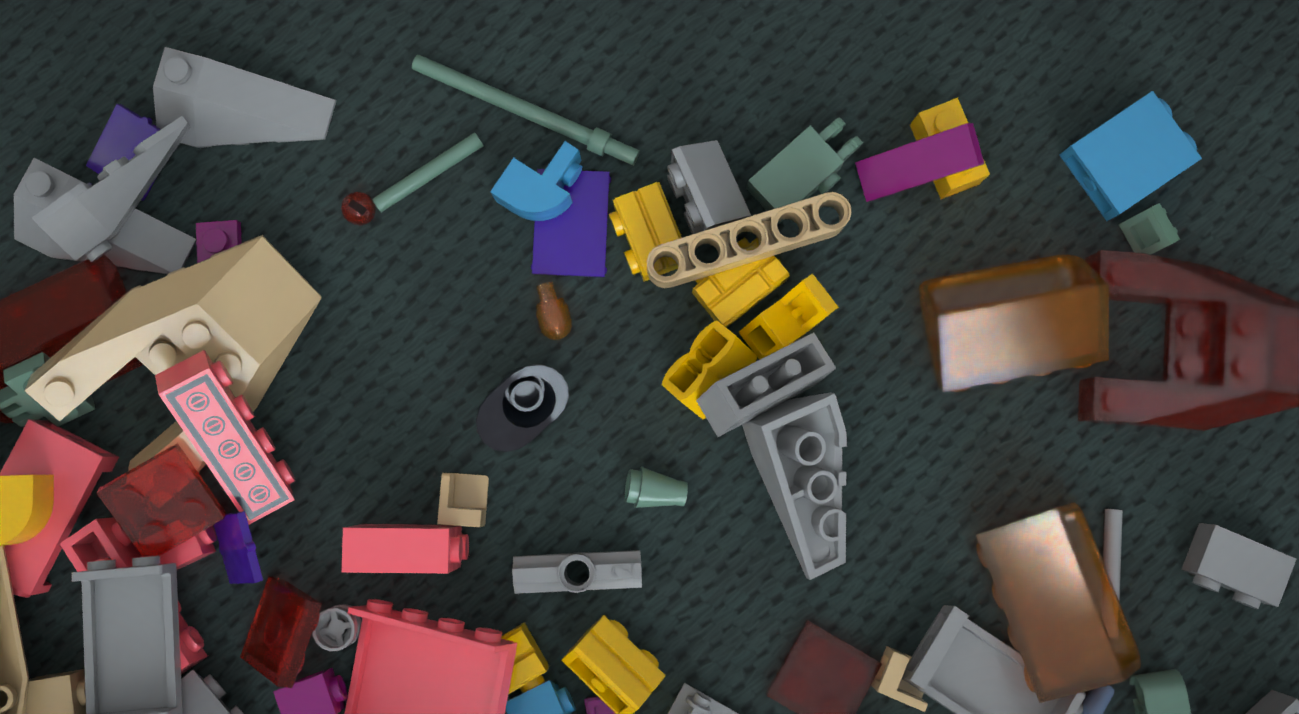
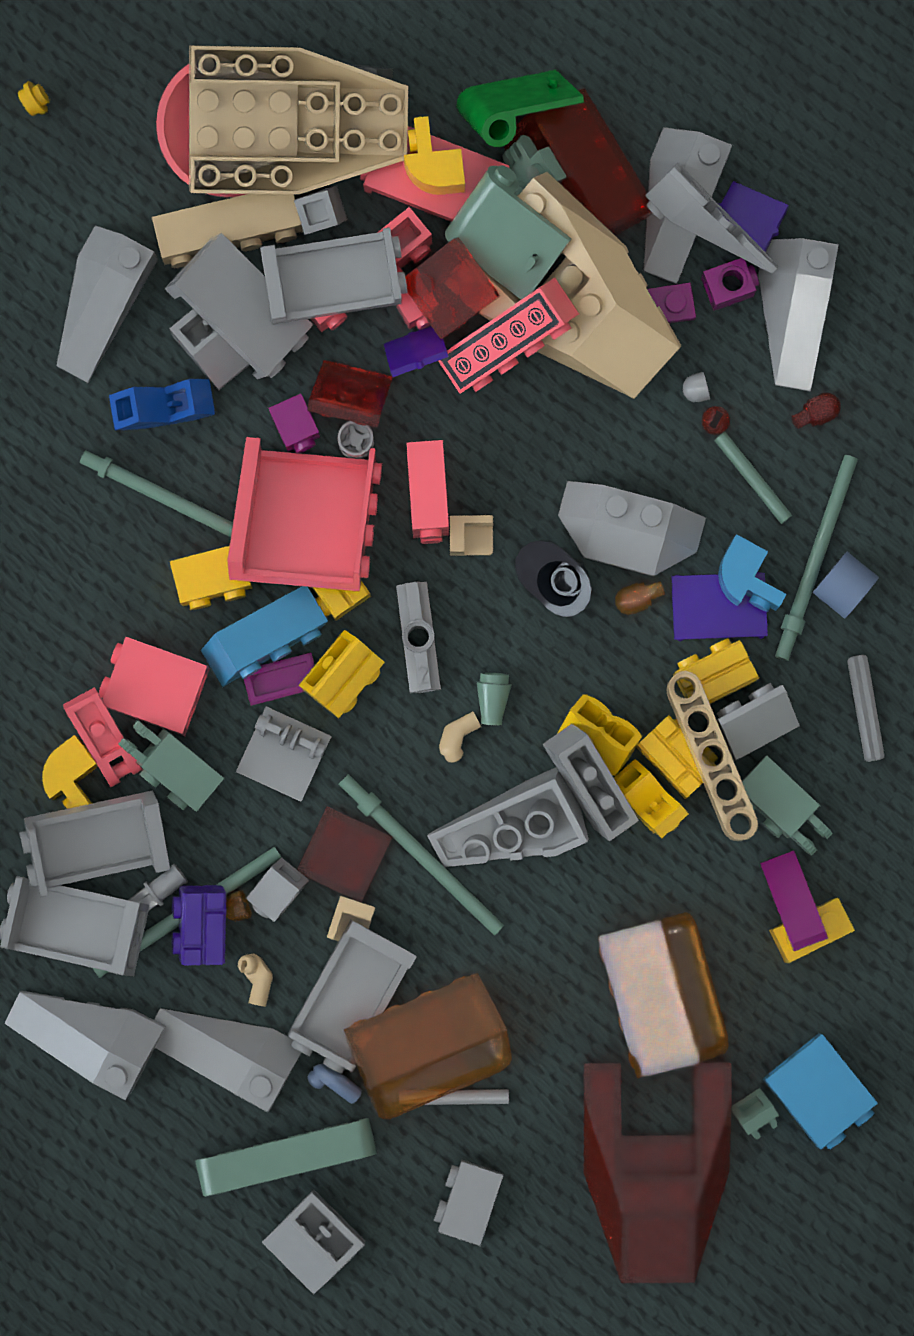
camera: 80 degrees right, 0 degrees up
(55, 649) = (320, 210): none -> light grey brick
(94, 429) = (506, 233): none -> sand green door
(210, 192) = (718, 294): none -> magenta brick
(318, 226) = (696, 388): none -> light grey hinge
(358, 92) = (818, 410): none -> clear red cylinder
(471, 317) = (629, 528): none -> light grey wedge
(559, 75) = (845, 585): none -> sand blue piece
(696, 539) = (453, 736): none -> tan arm
(700, 69) = (865, 708): none -> light grey axle
(768, 643) = (370, 805): none -> sand green bar

